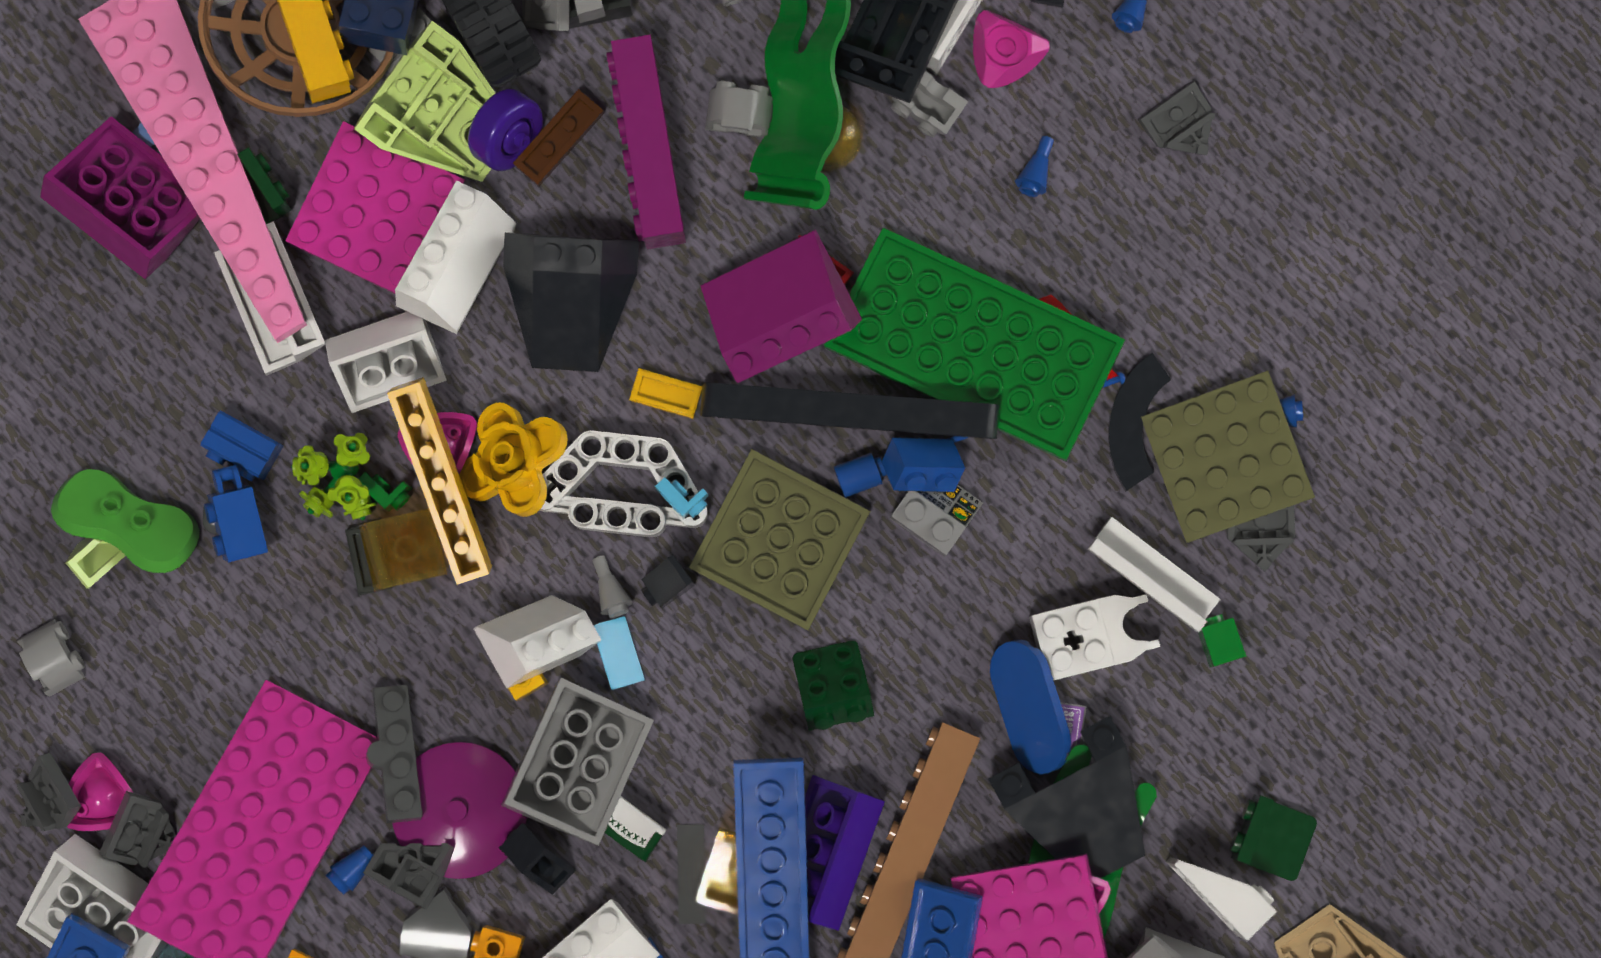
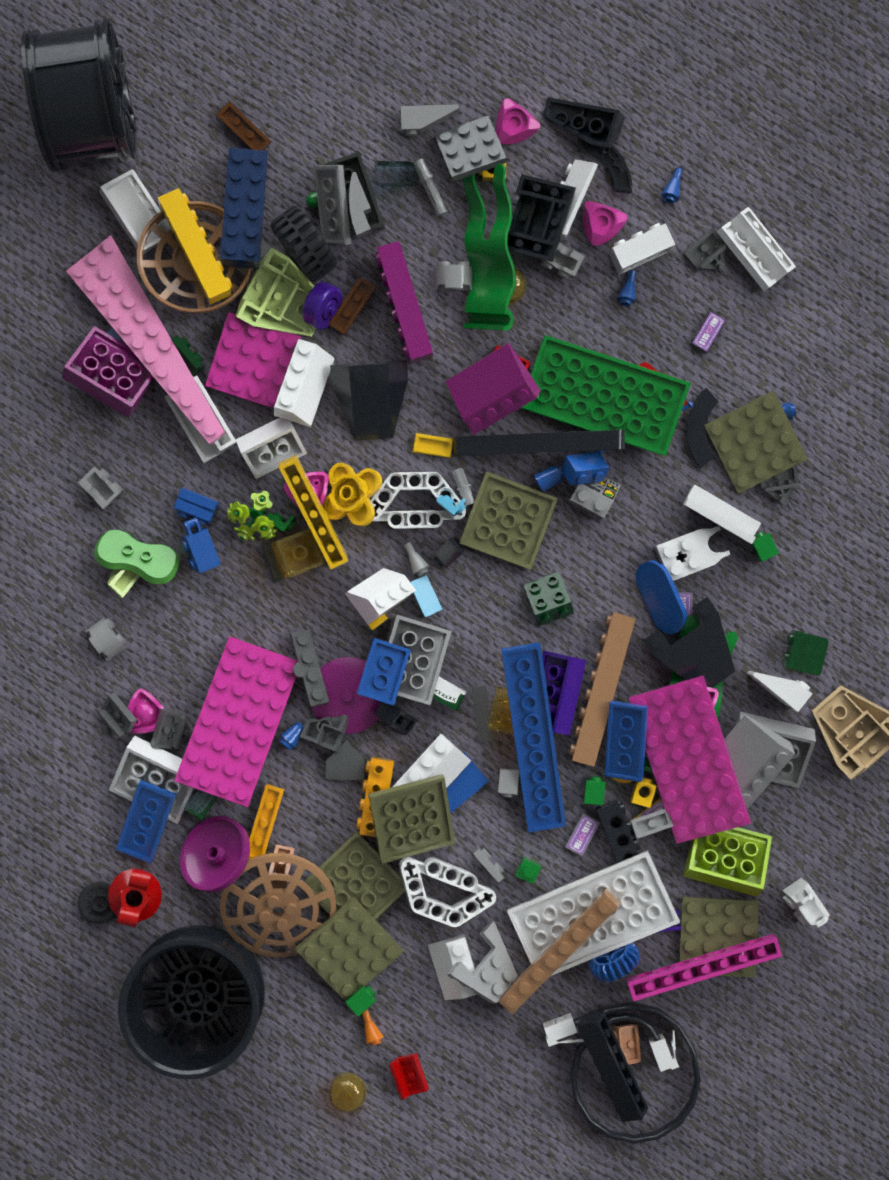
camera: 10 degrees left, 5 degrees up
(80, 392) = (100, 487): none -> light grey cylinder
(522, 775) = (383, 671): none -> blue plate
(709, 470) = (463, 486): none -> light grey axle
(1067, 100) = (641, 248): none -> white brick
(1166, 258) = (708, 332): none -> medium lavender tile
(1265, 127) = (756, 249): none -> white slope

